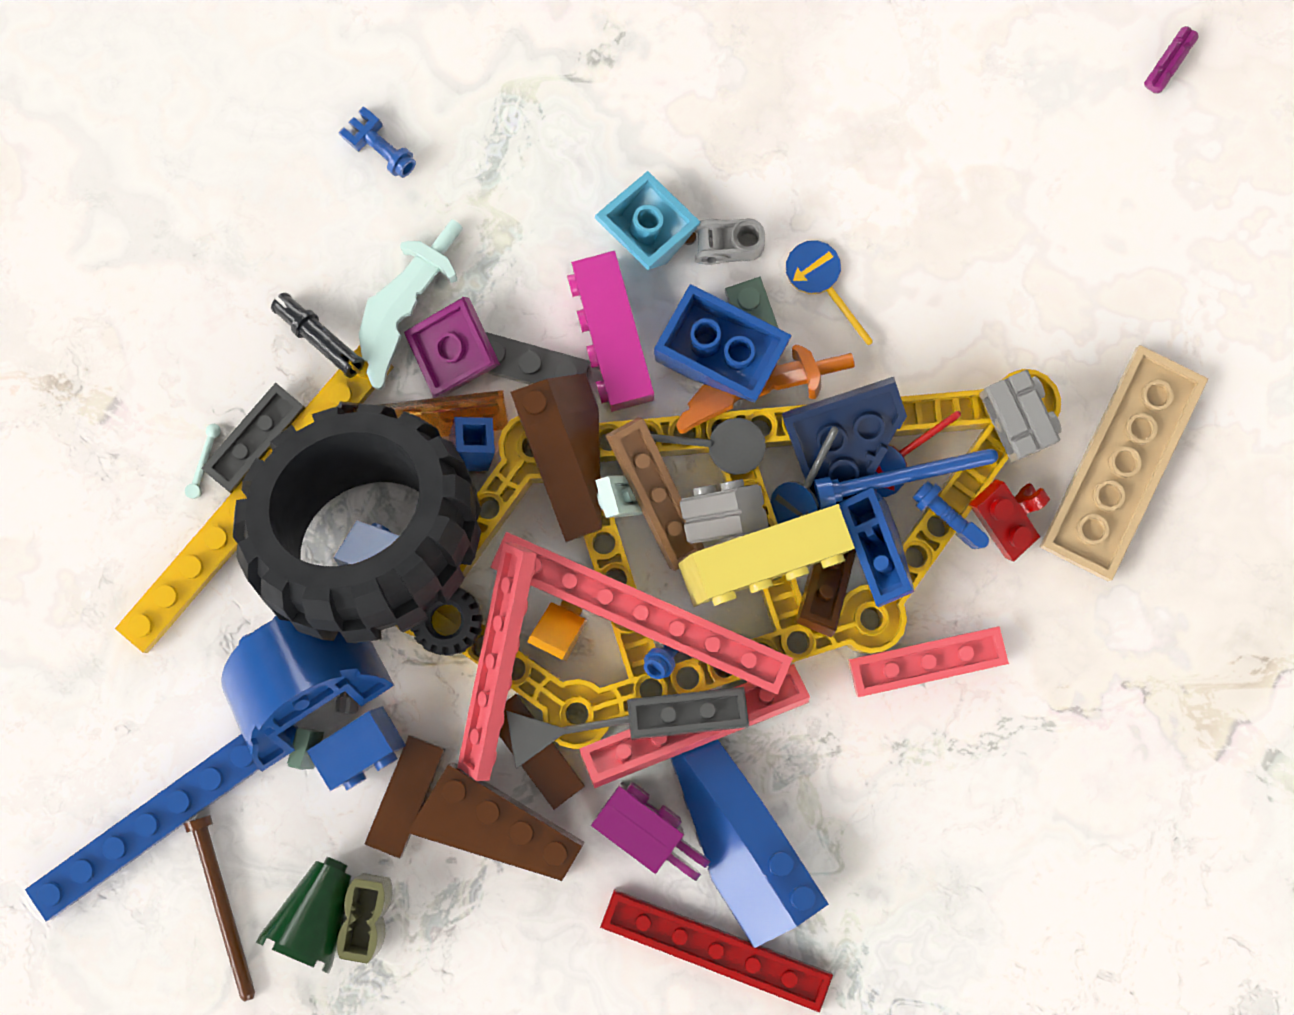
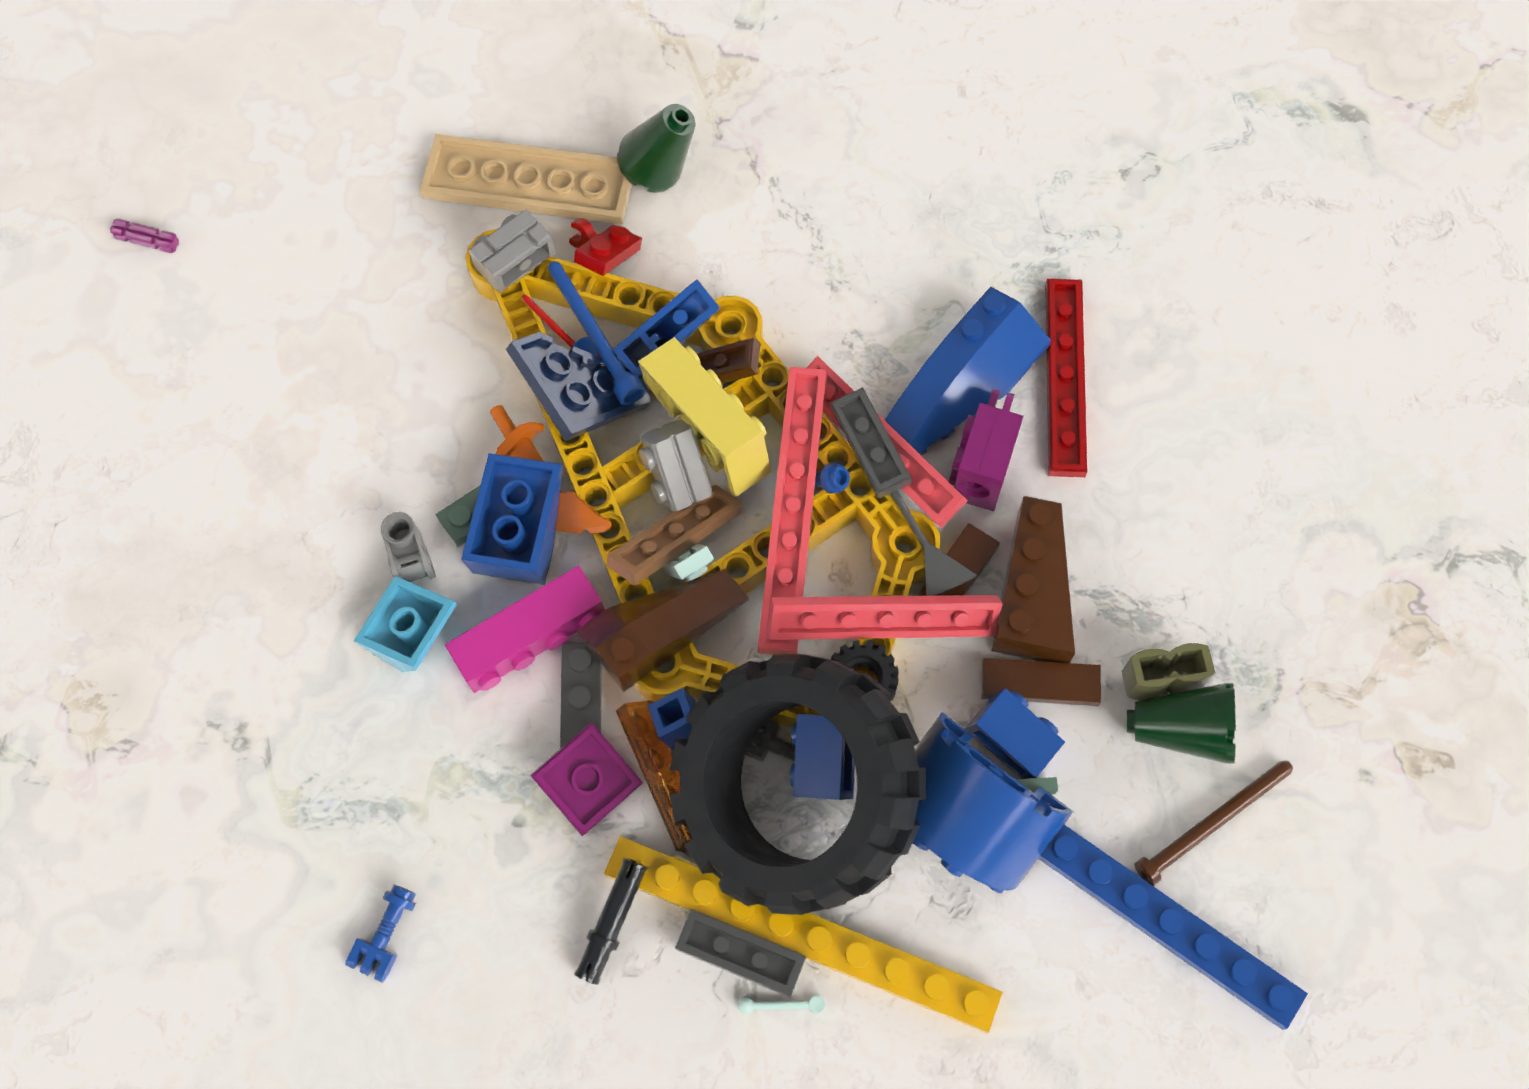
camera: 110 degrees left, 15 degrees down
(398, 299) = (551, 850): light aqua sword -> none
(558, 629) = (834, 576): light orange slope -> none
(734, 445) = (607, 479): dark grey piece -> none
(796, 499) = (642, 415): blue piece -> none
(815, 269) = (417, 473): blue piece -> none
(928, 661) = (753, 278): coral plate -> none
(966, 531) = (607, 305): blue hinge -> none
(1109, 601) = (657, 149): none -> dark green cone

